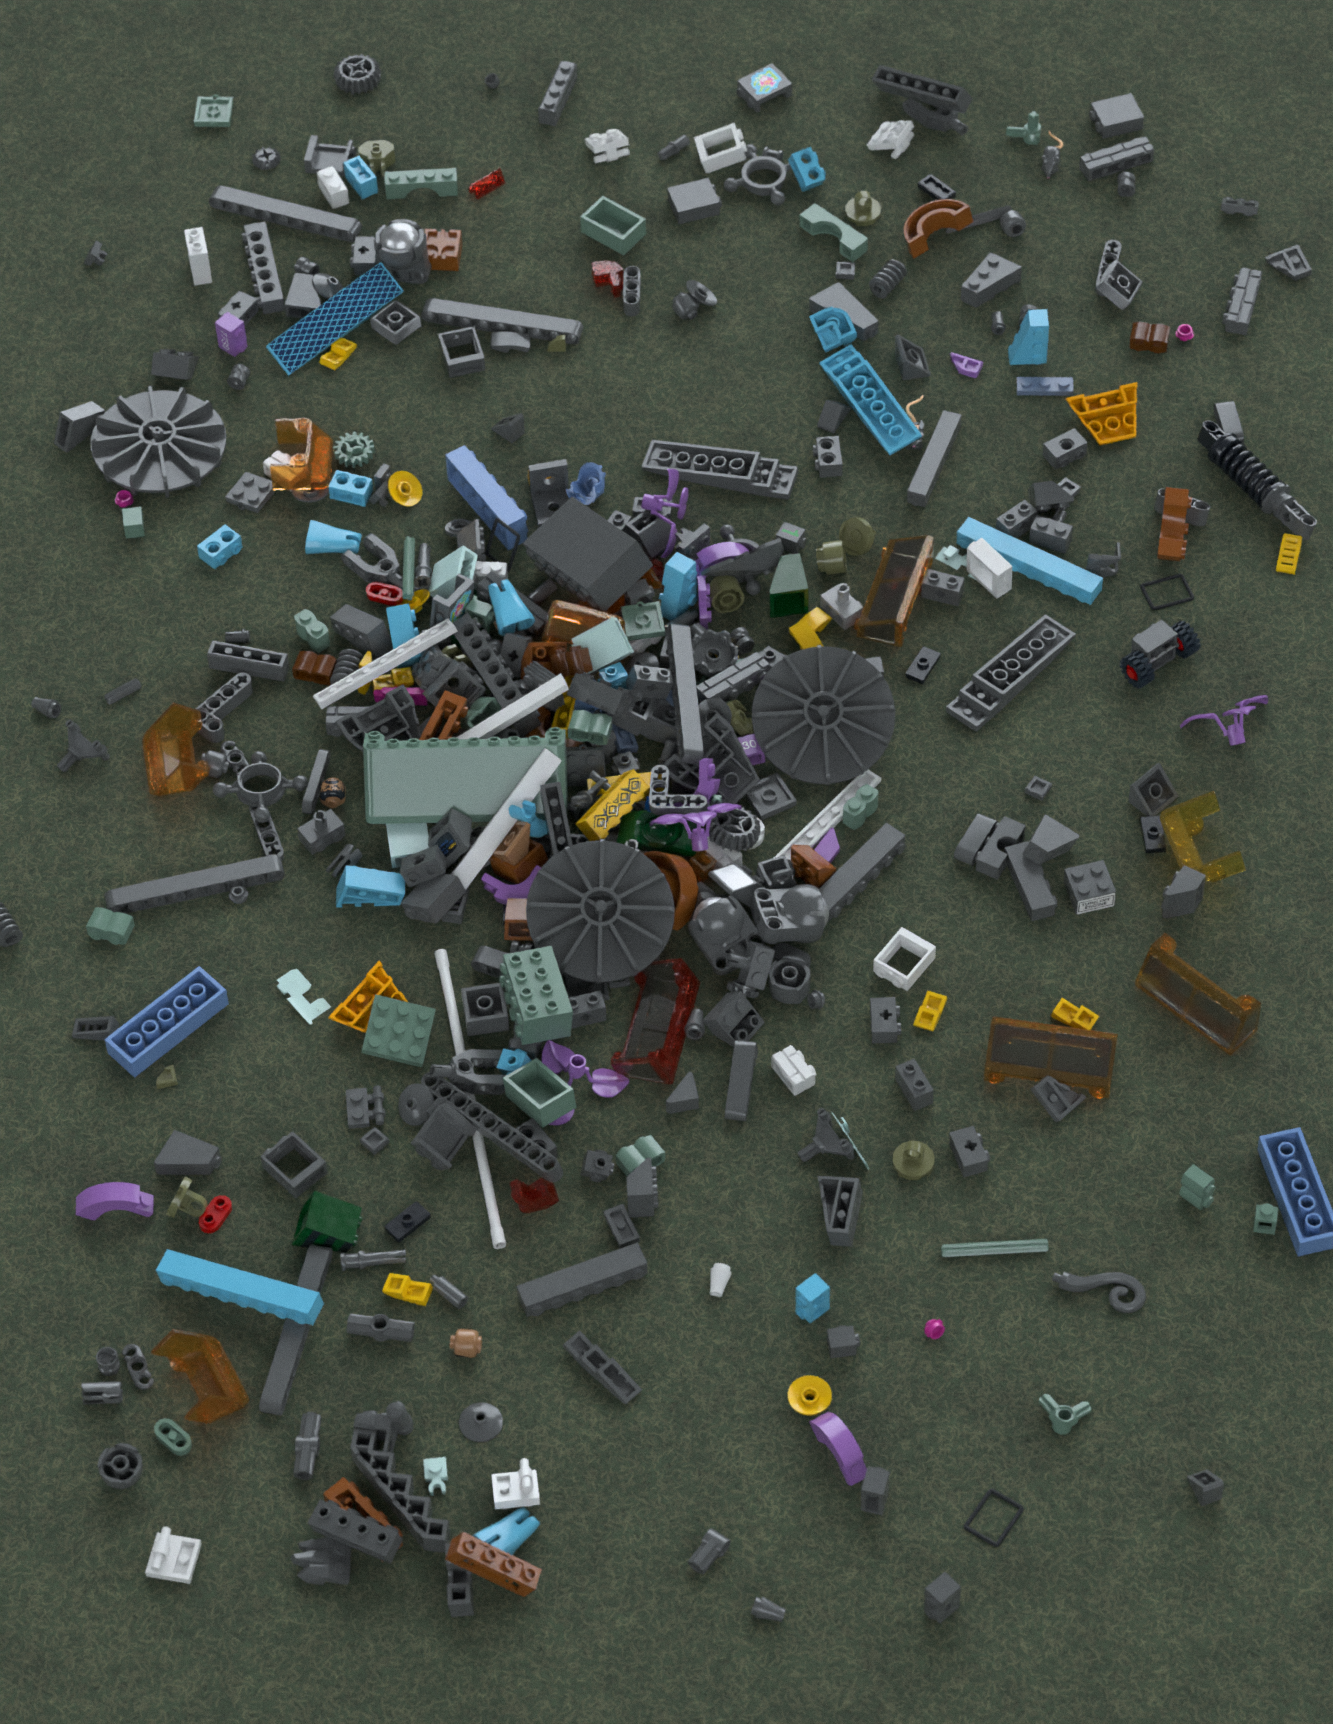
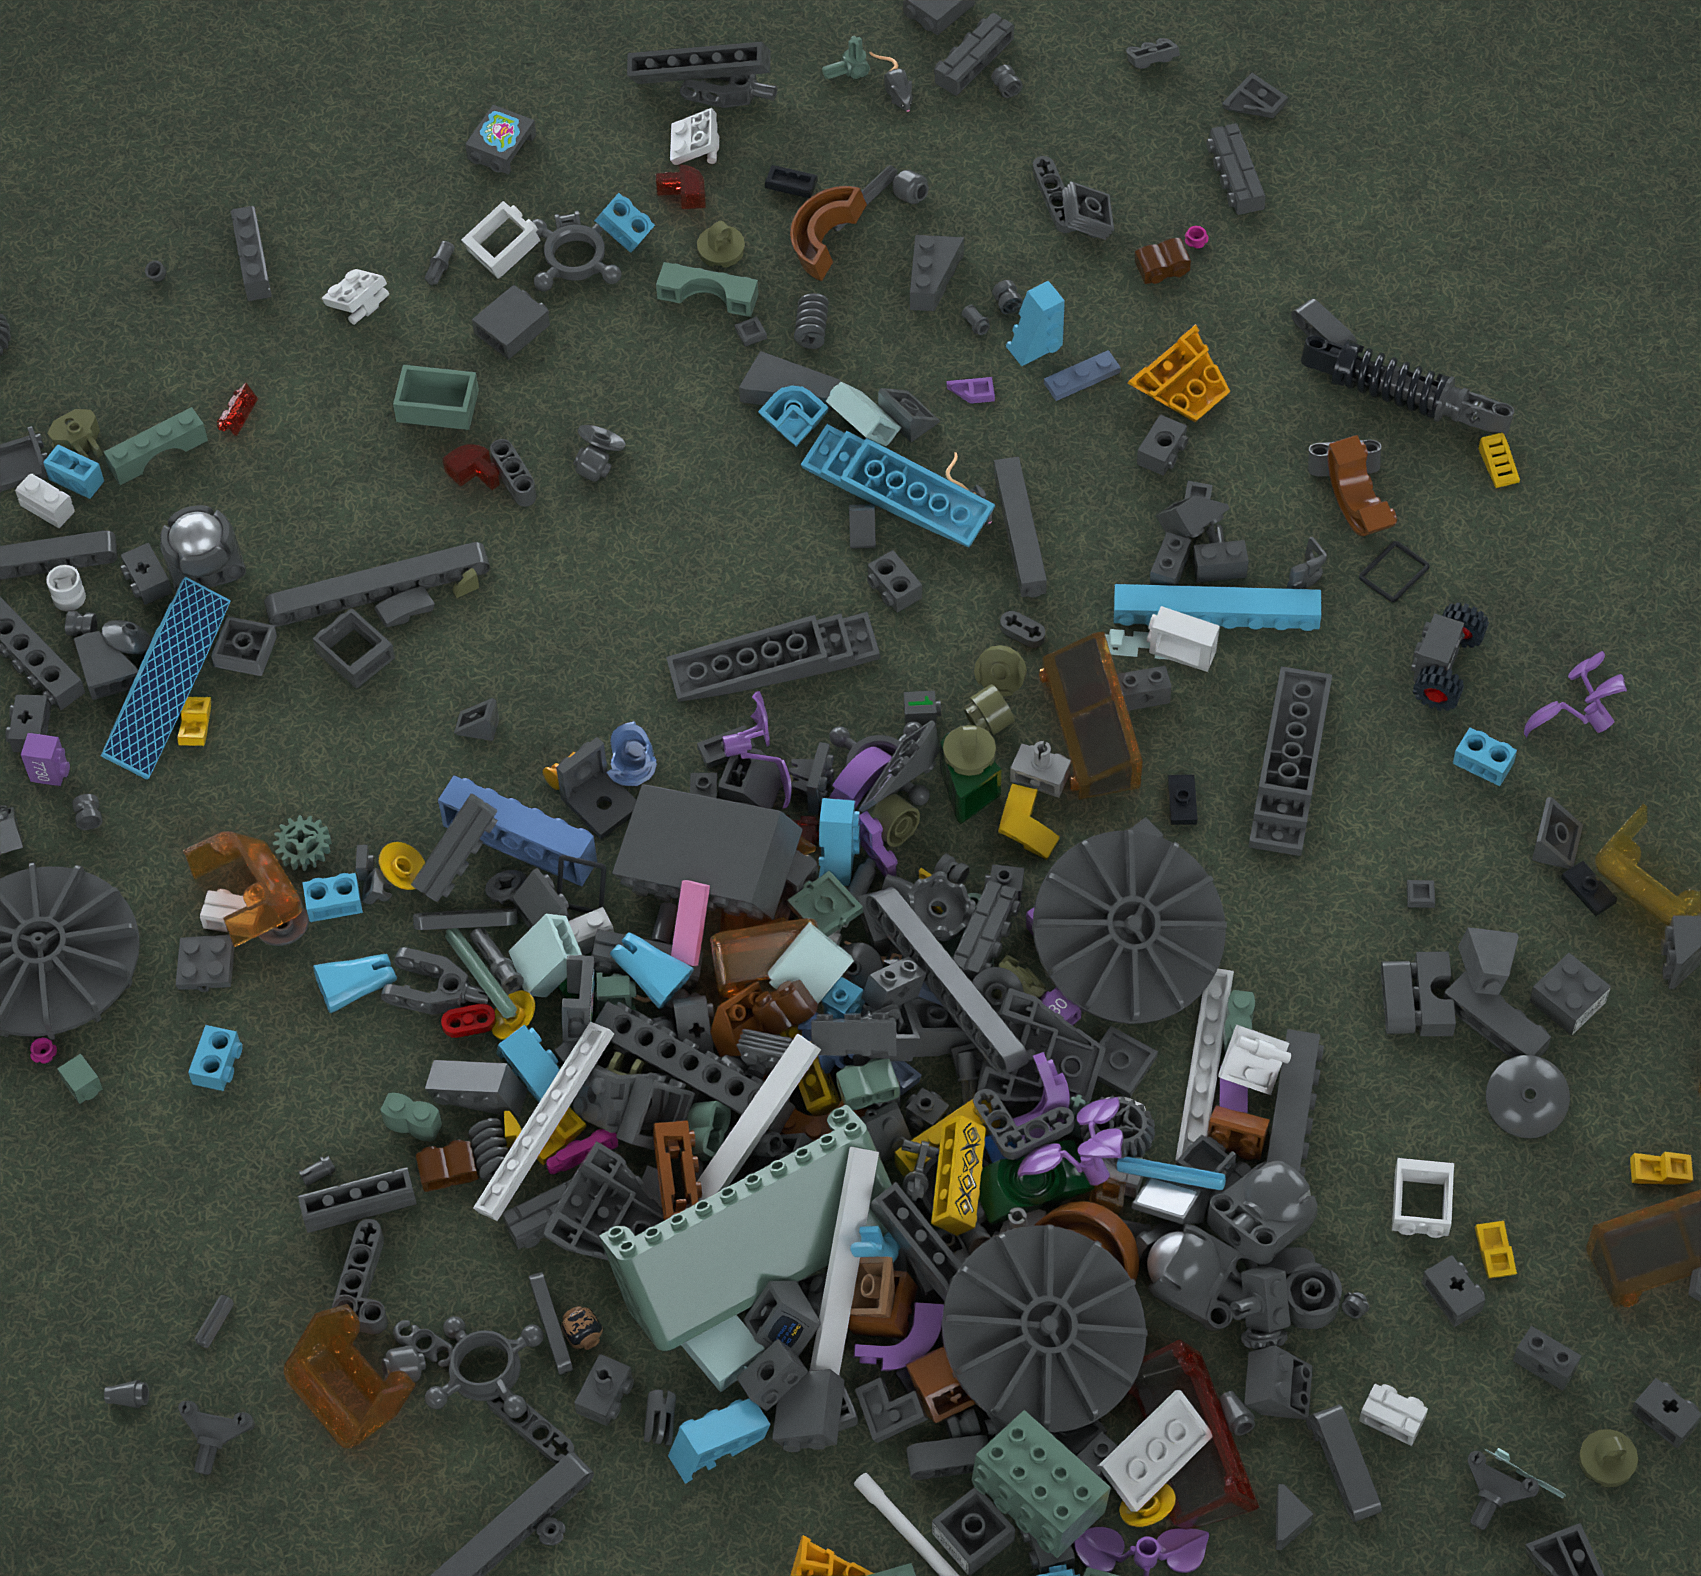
camera: 30 degrees left, 5 degrees up
(311, 243) = (66, 588): none -> white wheel
(422, 535) = (465, 918): none -> dark grey beam
(438, 487) = (454, 848): none -> dark grey brick
(444, 249) = (245, 519): dark orange piece -> none
(480, 923) = (888, 1416): none -> dark grey plate
(547, 589) = (690, 922): none -> bright pink tile
(602, 1047) = (1152, 1511): none -> yellow dish
(626, 1016) = (1155, 1450): none -> white plate
(746, 865) = (1171, 1173): none -> medium azure axle
(794, 567) = (969, 749): none -> olive tile
(850, 829) = (1254, 1059): none -> white plate
(864, 164) = (687, 182): none -> clear red brick
(877, 346) = (863, 413): none -> light aqua brick
(895, 519) = (1022, 629): none -> dark grey beam
(1019, 944) = (1527, 1116): none -> dark grey dish
(1140, 725) = (1482, 761): none -> medium azure brick

